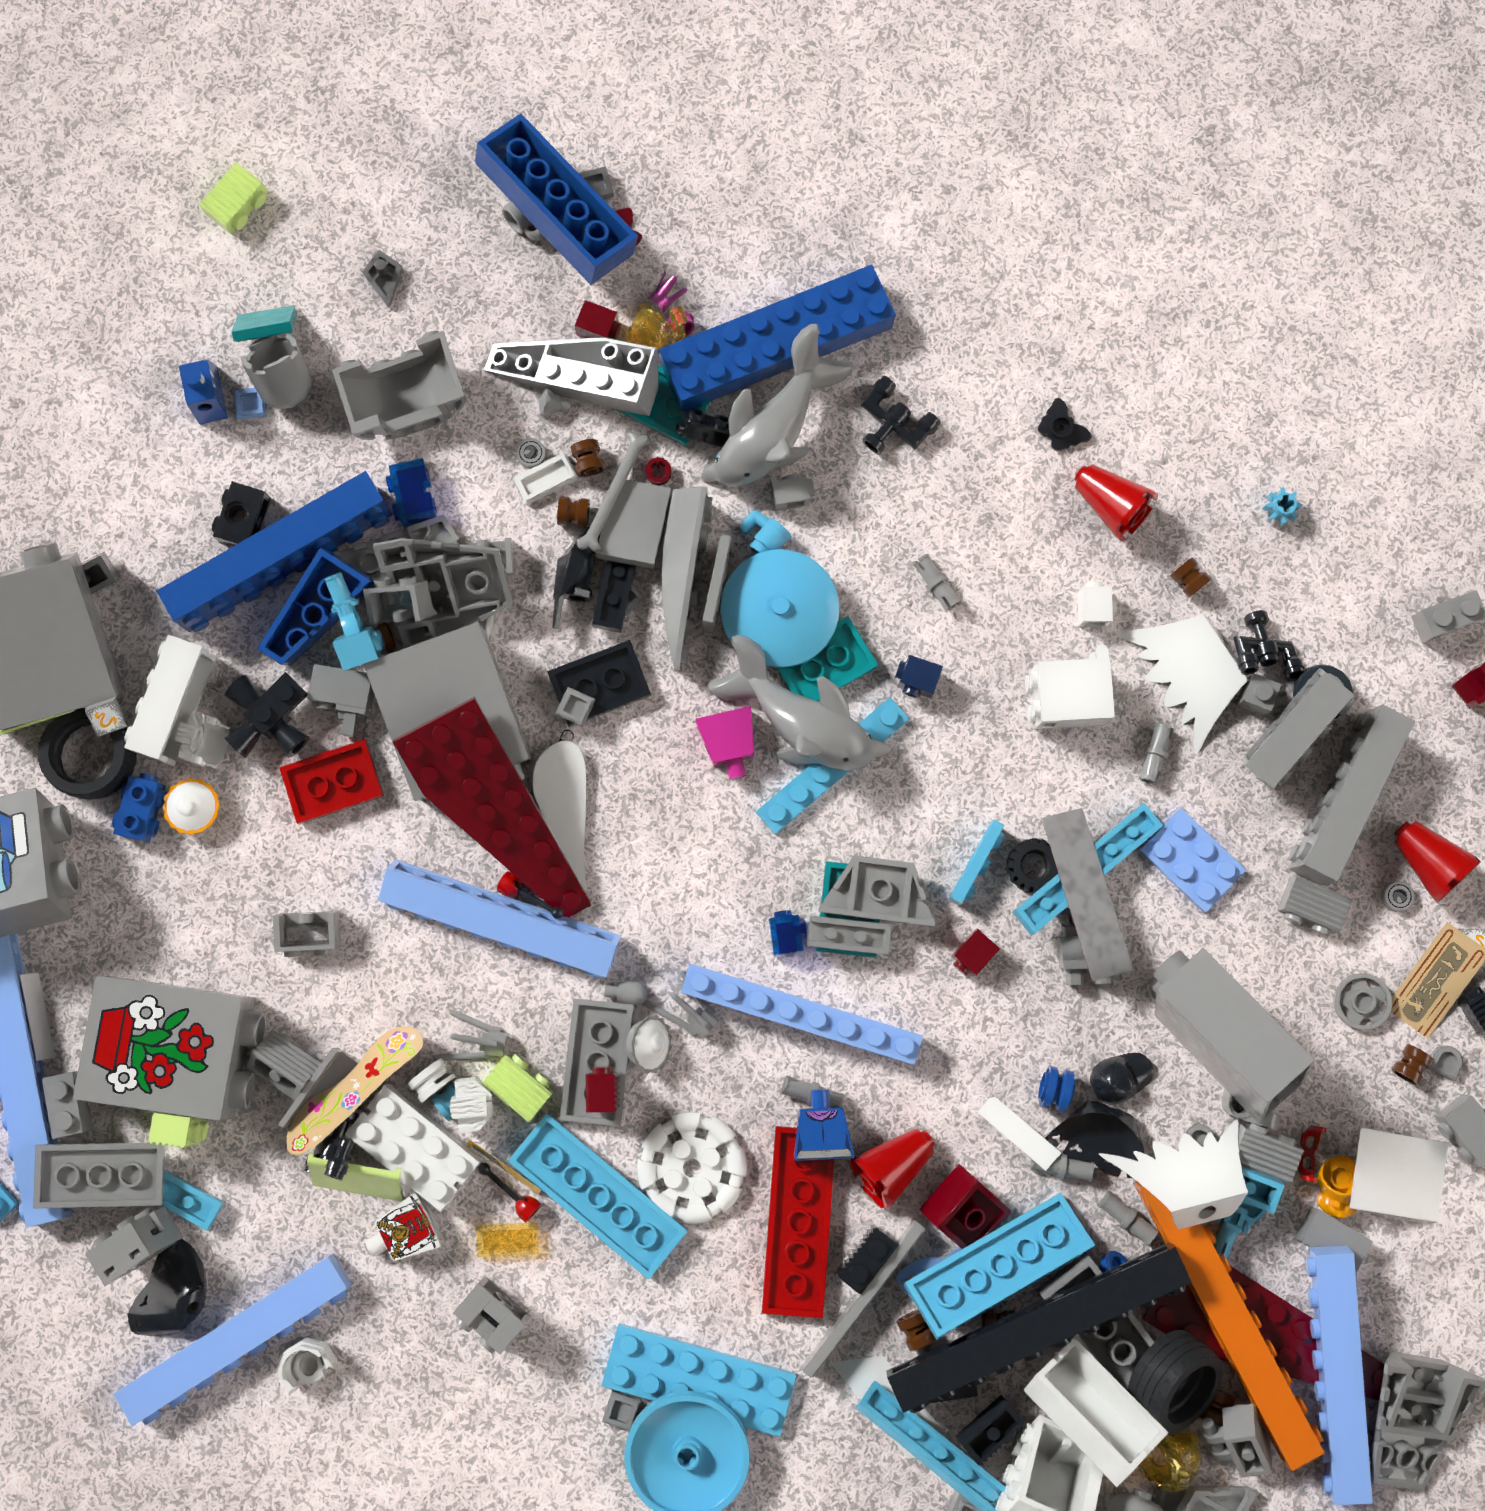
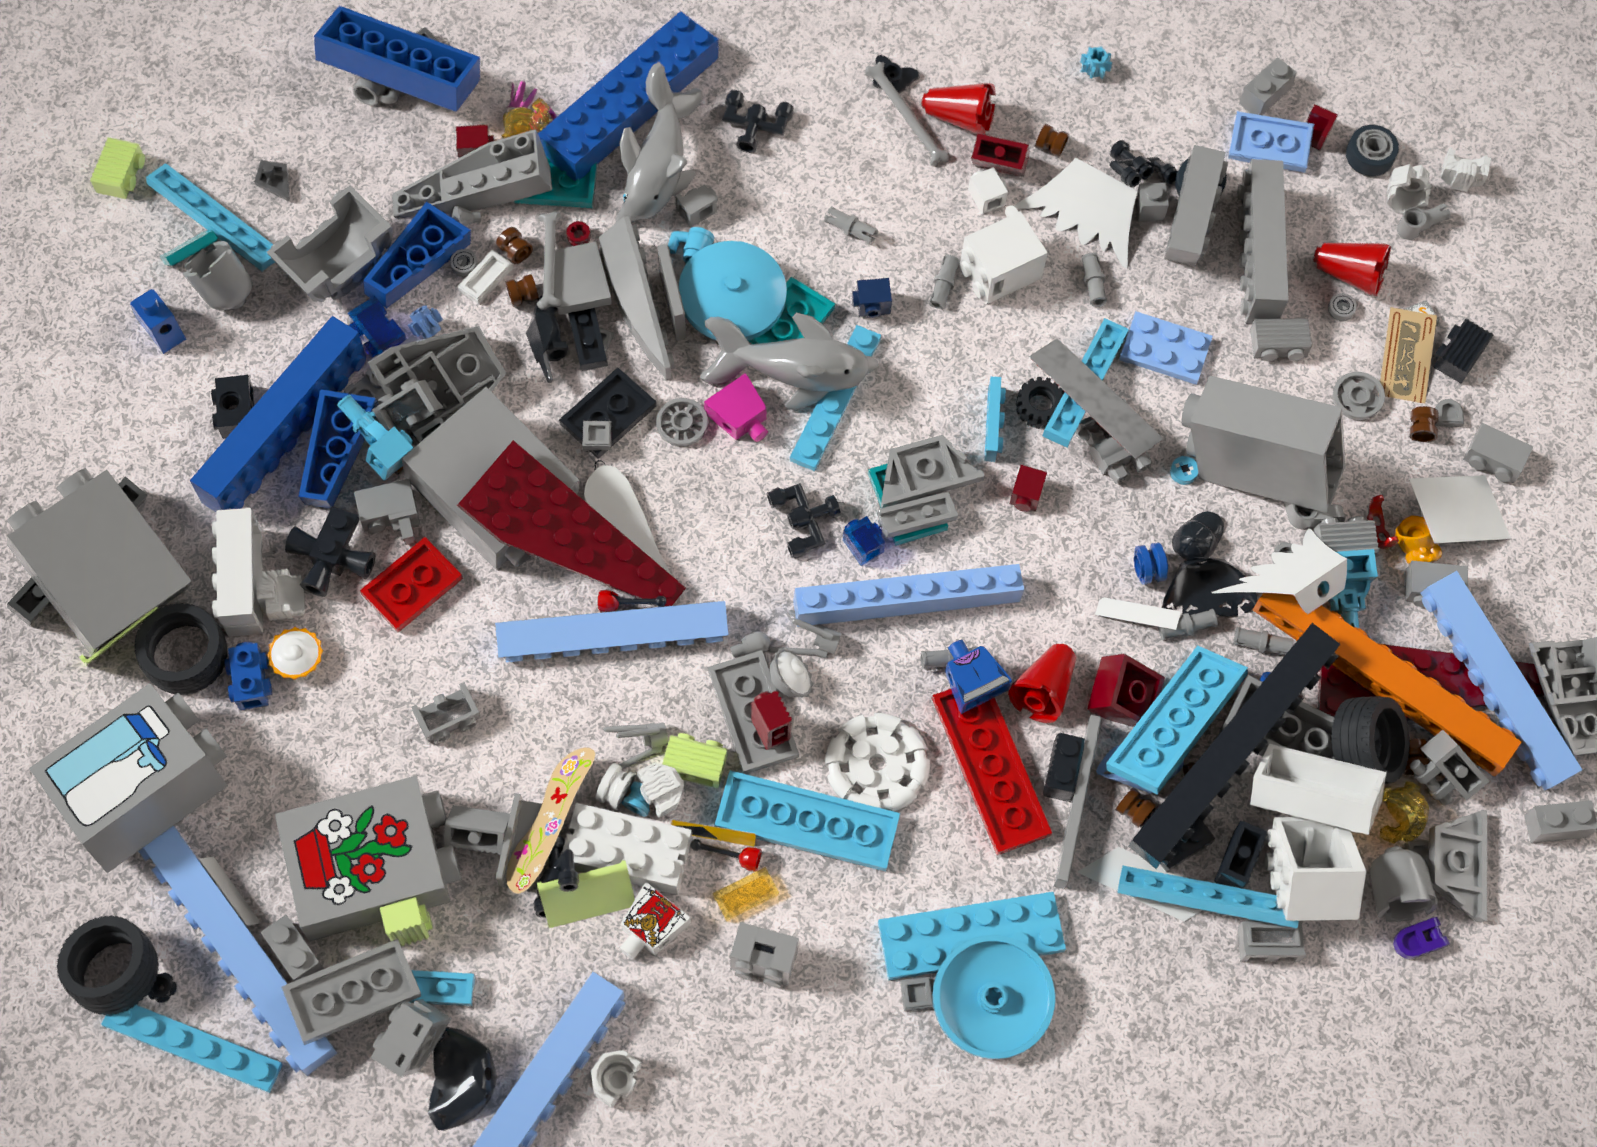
camera: 25 degrees left, 15 degrees down
(106, 716) = (189, 600): tile -> none
(249, 404) = (201, 319): light blue tile -> none
(304, 292) = (211, 215): none -> medium azure plate
(462, 506) = (425, 322): none -> medium blue gear
(484, 427) = (416, 254): none -> blue wedge
(668, 724) = (682, 422): none -> light grey wheel
(697, 422) = (593, 183): black hinge -> none
(738, 881) = (803, 517): none -> black piece
(1001, 688) = (944, 282): none -> light grey pin
(1044, 422) = (936, 153): none -> light grey piece
(1126, 574) = (1000, 154): none -> dark red brick
(1142, 1001) = (1184, 470): none -> medium azure tile
(1421, 677) = (1271, 139): none -> light blue tile

